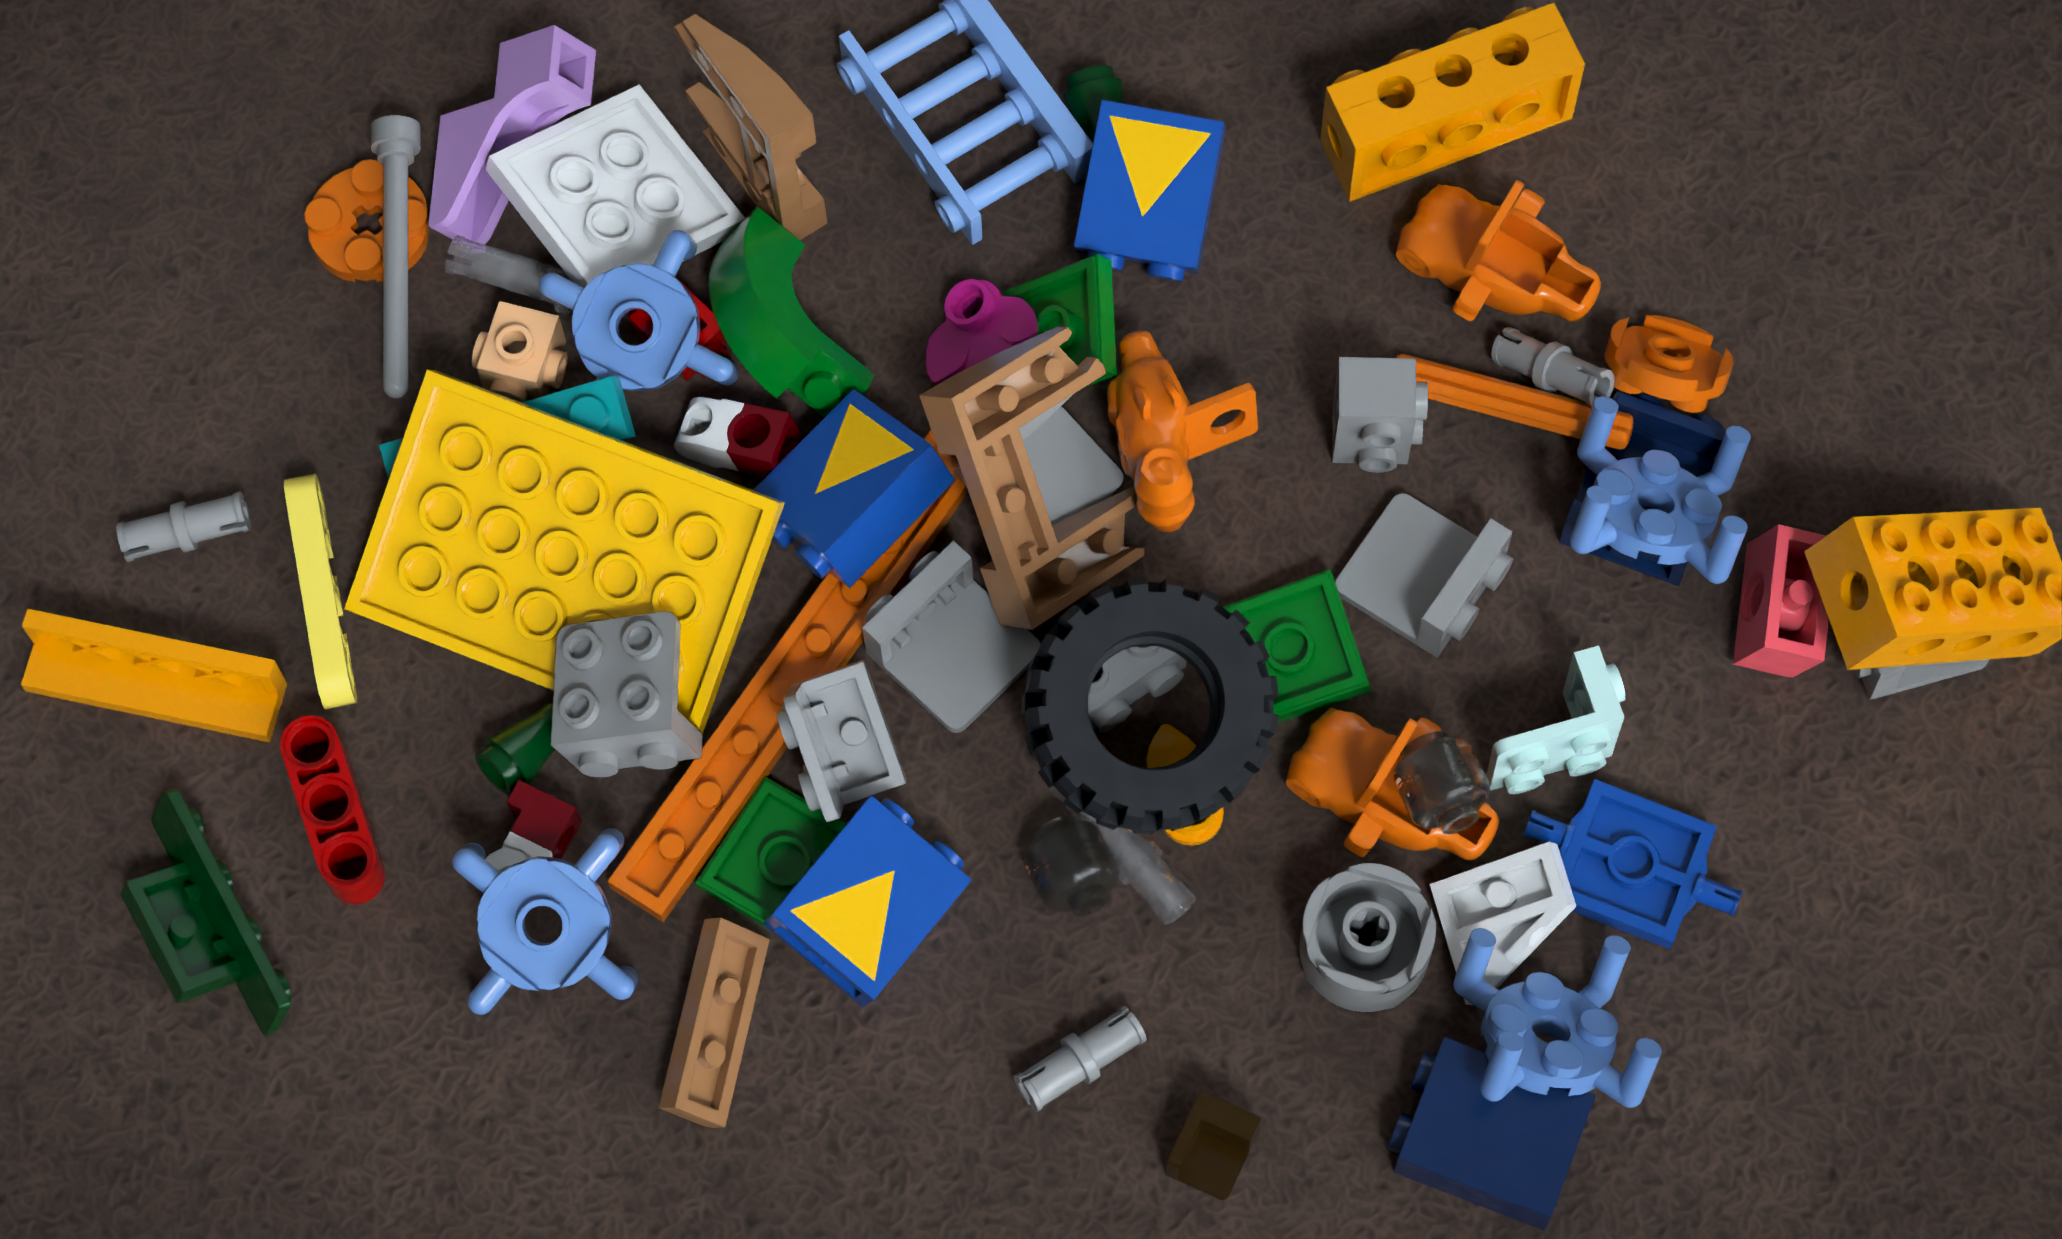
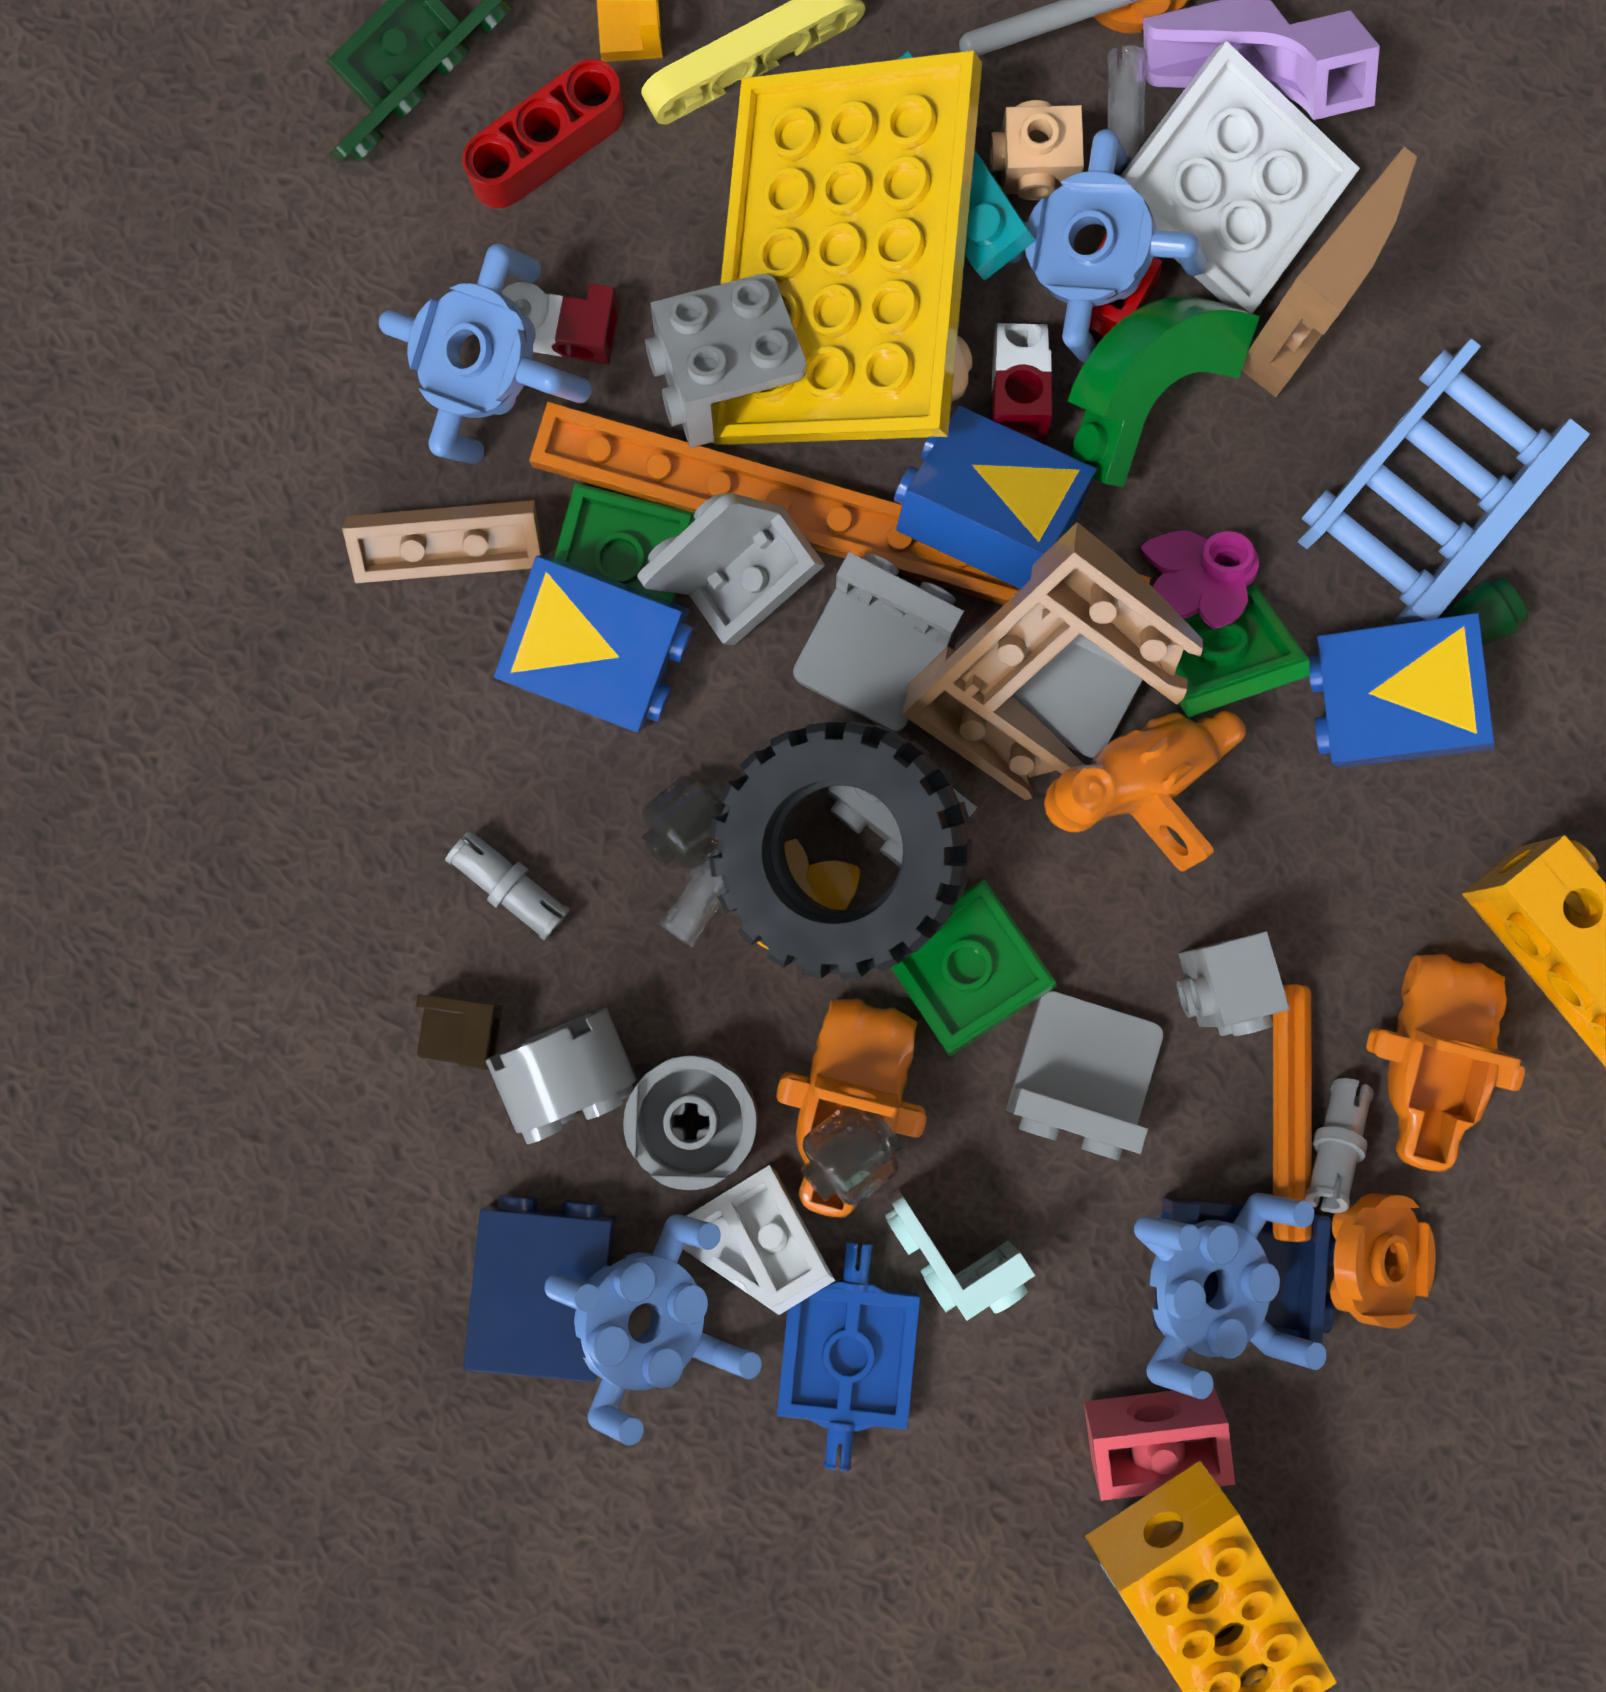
camera: 70 degrees right, 15 degrees up
(517, 750) = (648, 277): dark green cone -> none
(1287, 1043) = (562, 1073): none -> light grey brick

